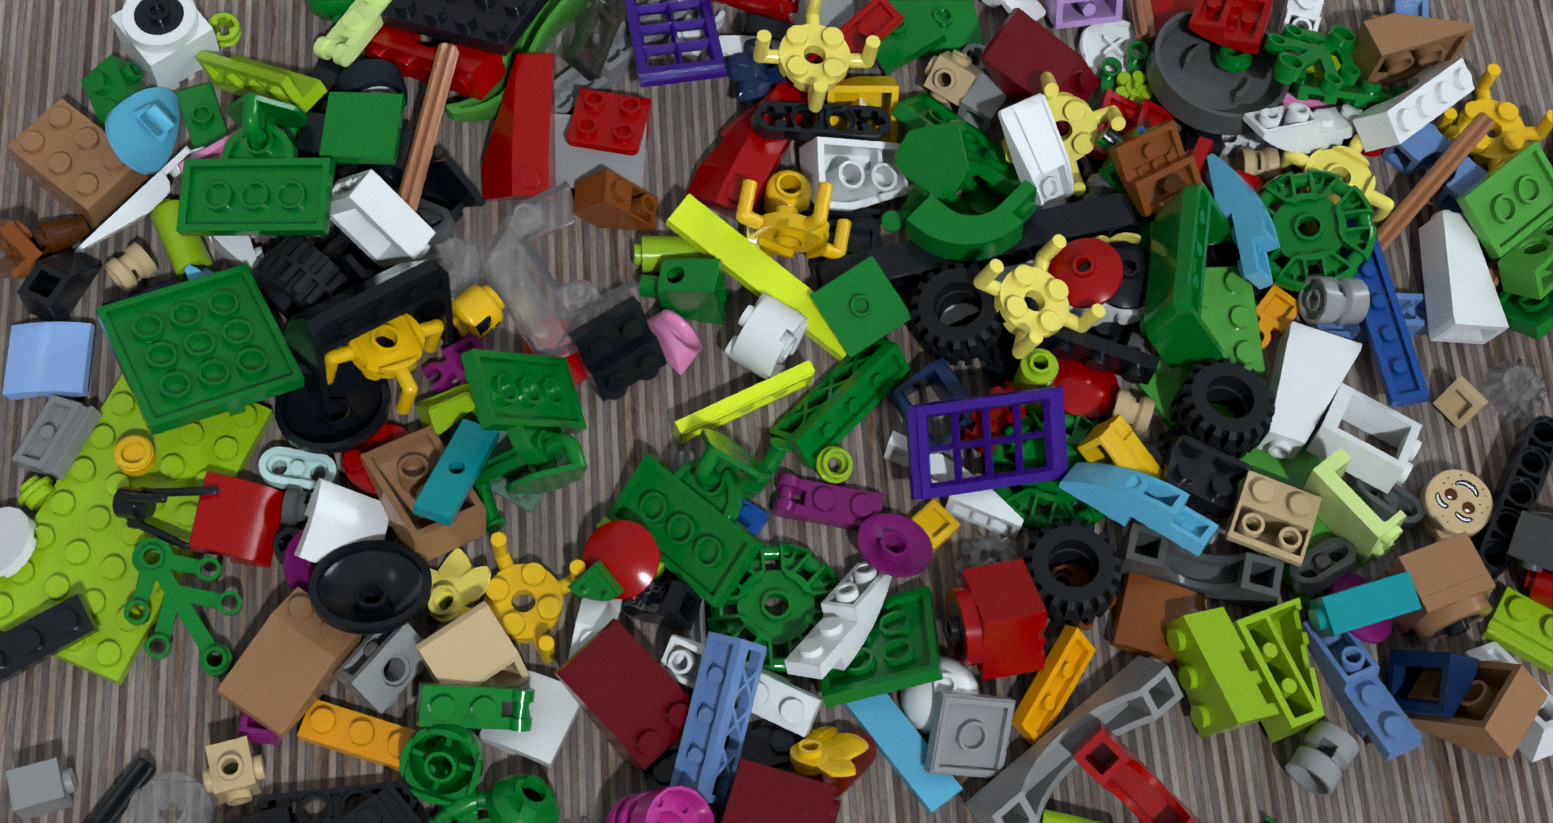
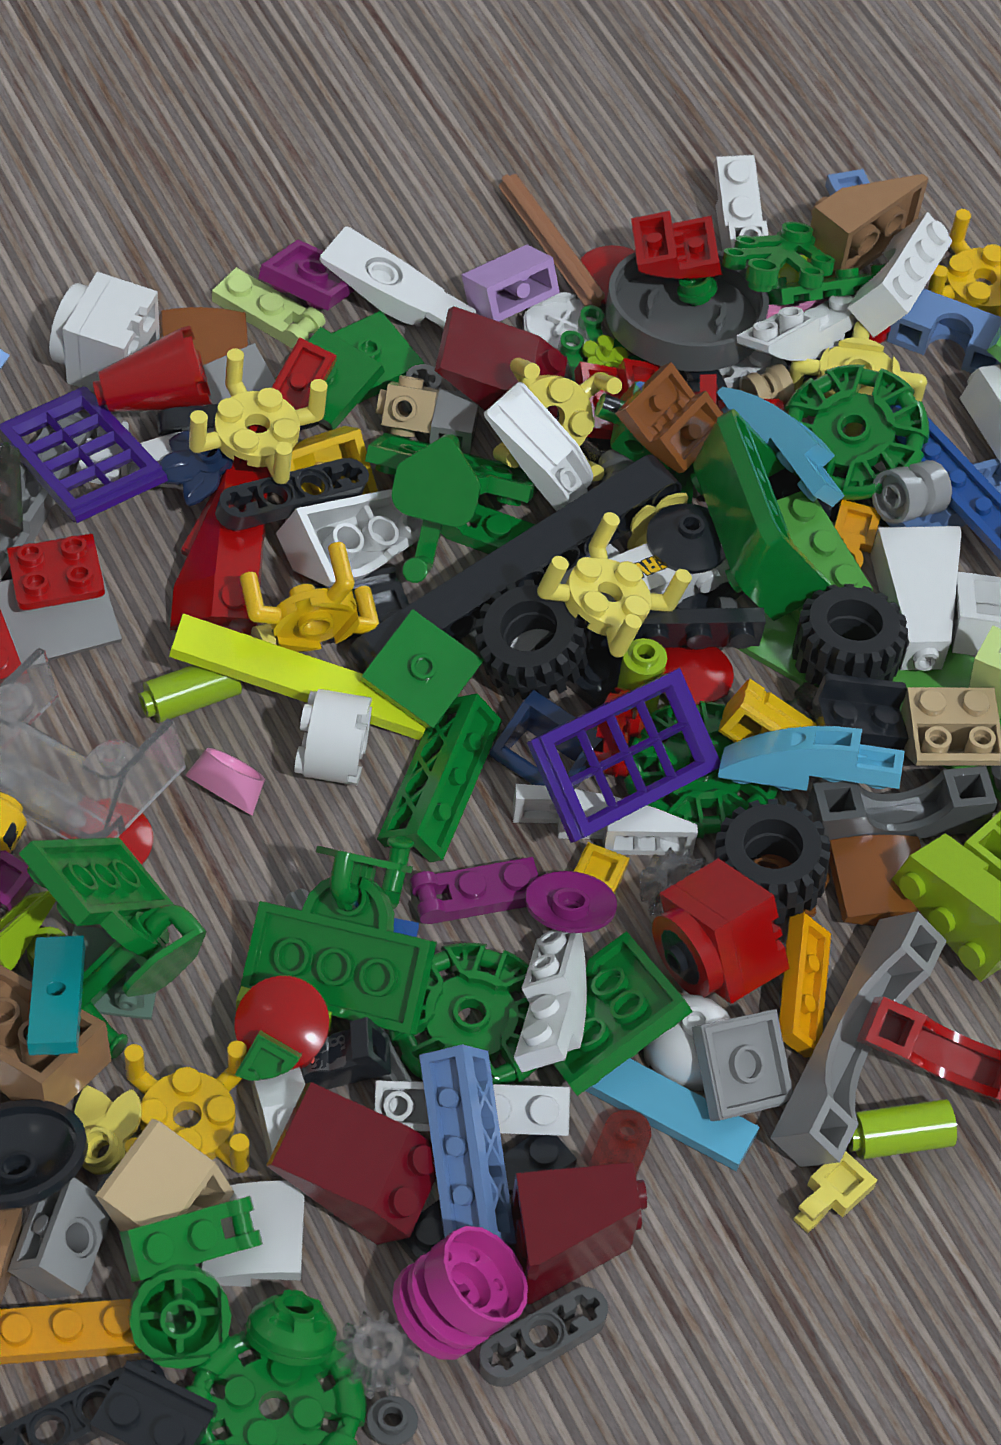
camera: 20 degrees left, 10 degrees down
(614, 202) = (96, 658): dark orange slope -> none
(617, 349) = (175, 807): black plate -> none
(690, 288) = (226, 716): green torso -> none
(743, 402) = (336, 816): neon yellow tile -> none
(788, 189) = (281, 575): yellow head -> none
(827, 752) = (602, 1141): yellow plate -> none
(844, 462) = (472, 838): lime plate -> none
(971, 236) = (508, 554): green arch -> none
(1098, 282) = (662, 556): red dish -> none
(1134, 411) = (764, 673): tan wheel -> none
(1433, 179) = (955, 337): nougat axle -> none

